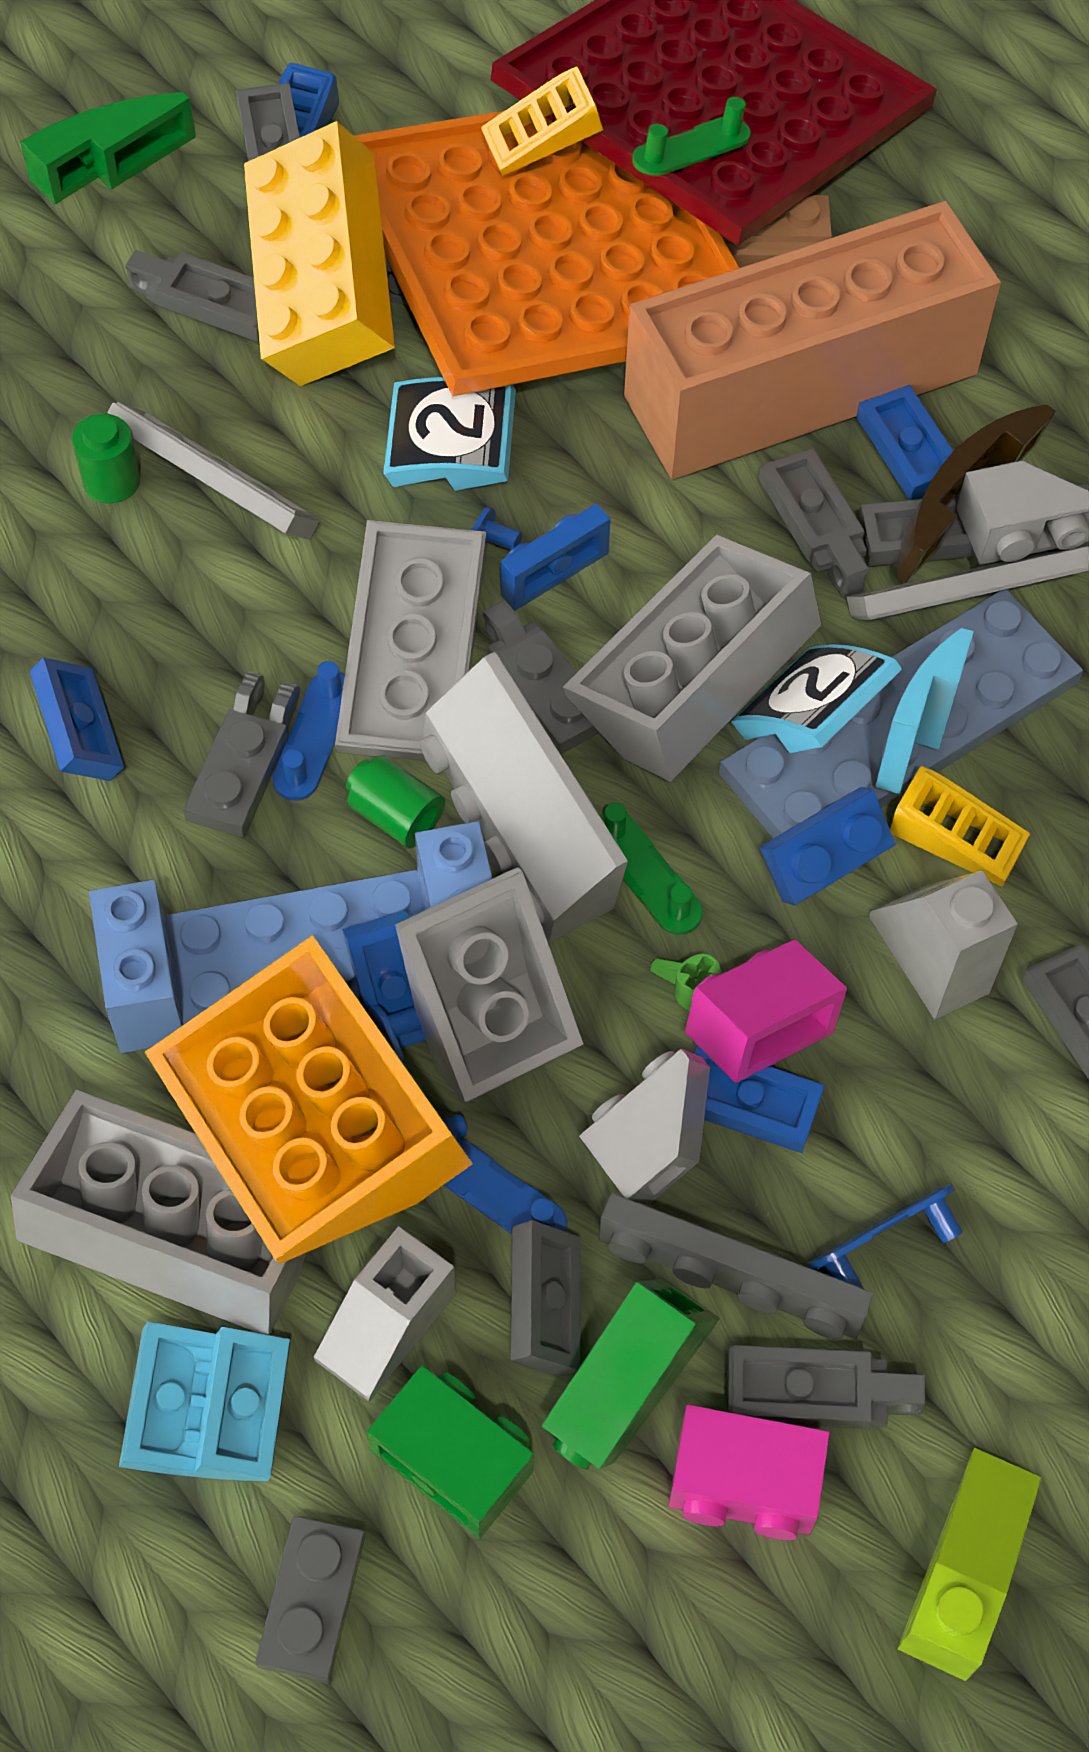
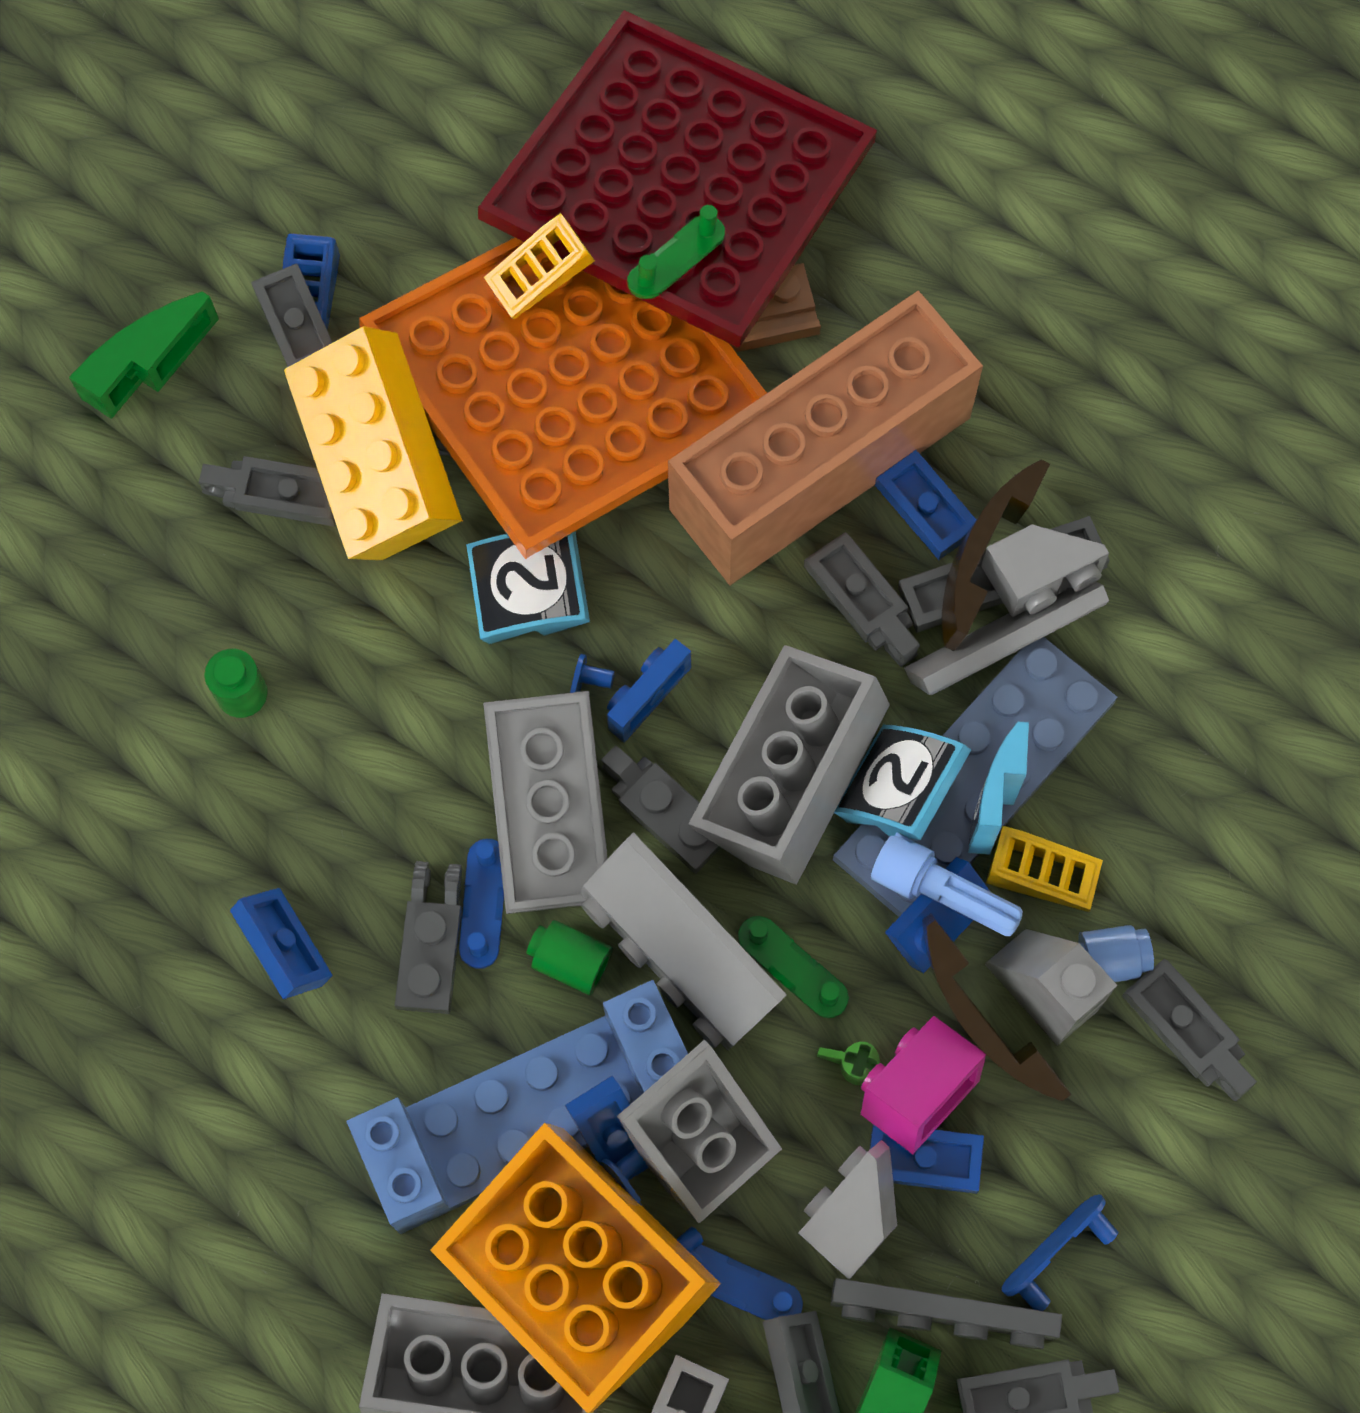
camera: 10 degrees left, 10 degrees up
(216, 472) = (332, 672): light grey tile -> none
(809, 782) = (914, 871): none -> light blue piece
(896, 1023) = (1026, 1064): none -> dark brown slope
(1040, 929) = (1120, 951): none -> medium blue brick

